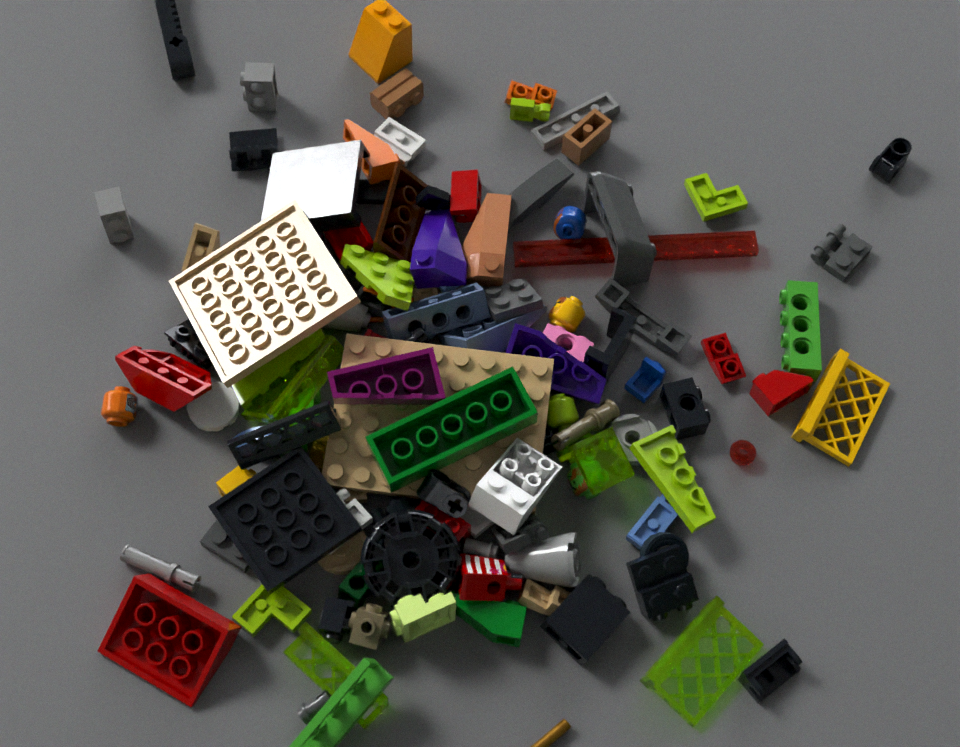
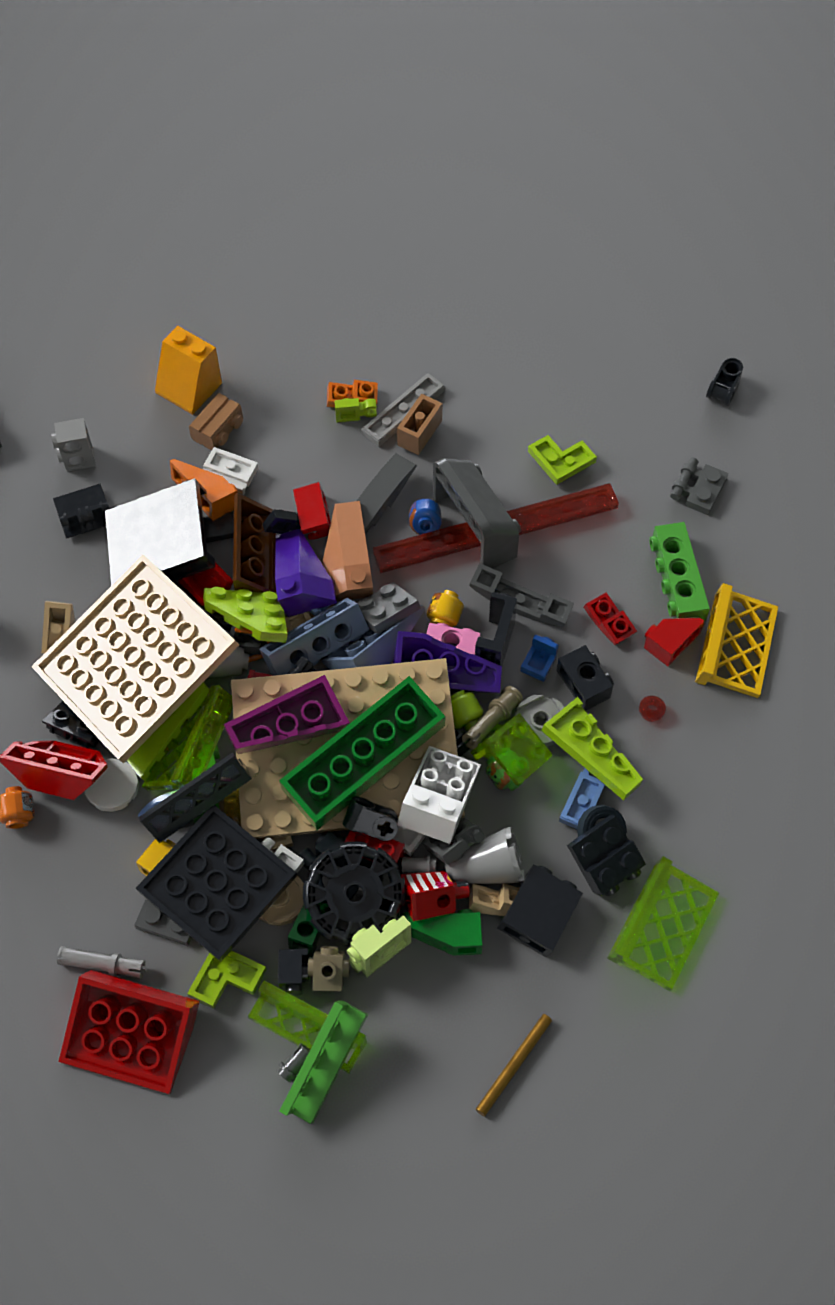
camera: 10 degrees left, 0 degrees up
(770, 671) = (732, 918): black hinge -> none

